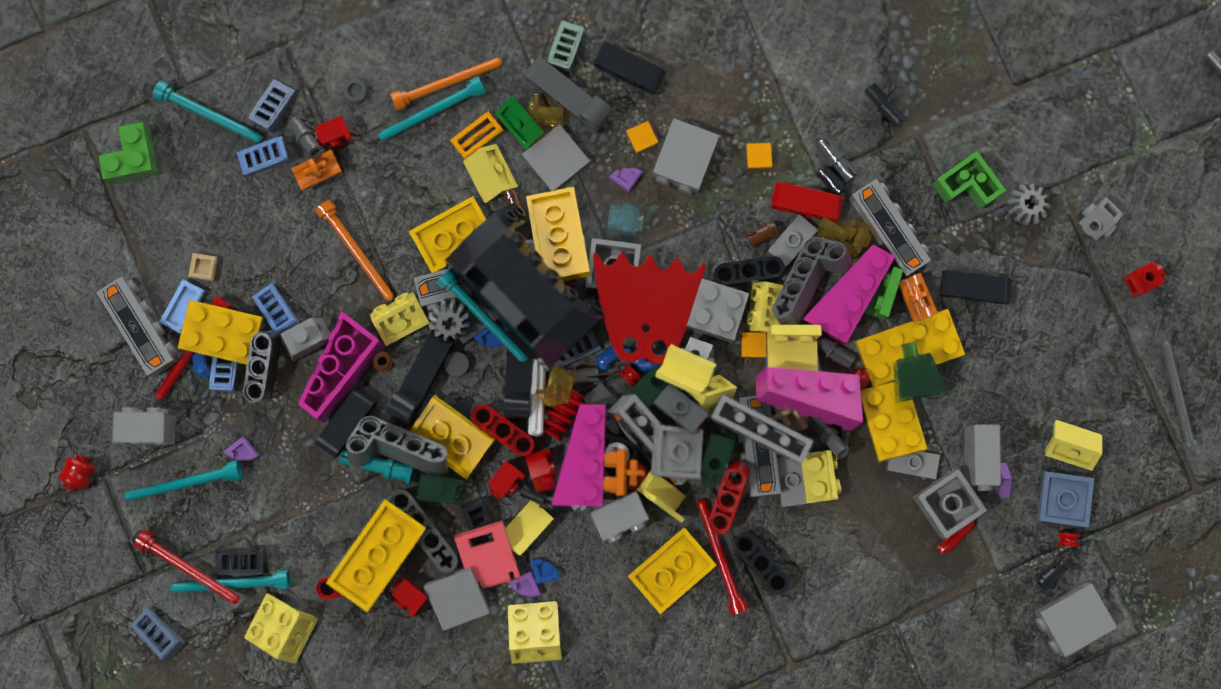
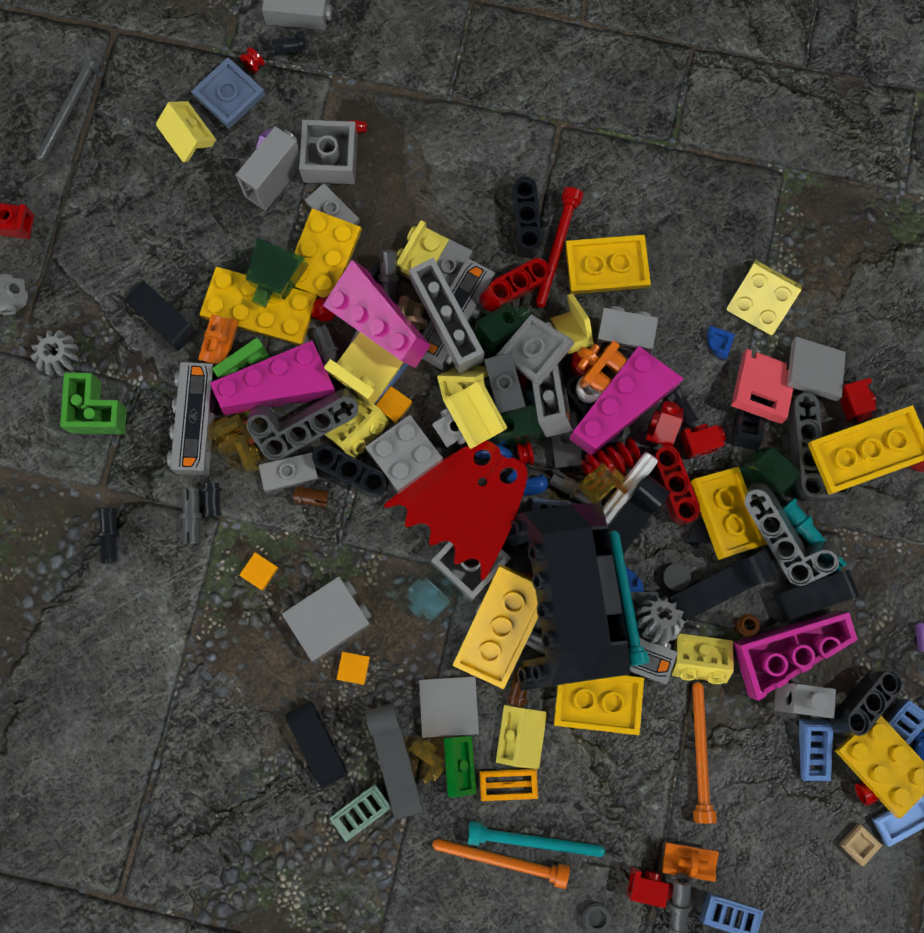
camera: 140 degrees left, 5 degrees down
(525, 585) = (744, 340): medium lavender tile -> none
(527, 526) = (710, 386): light yellow panel -> none
(626, 178) = (396, 640): medium lavender tile -> none
(806, 202) = (248, 496): red beam -> none

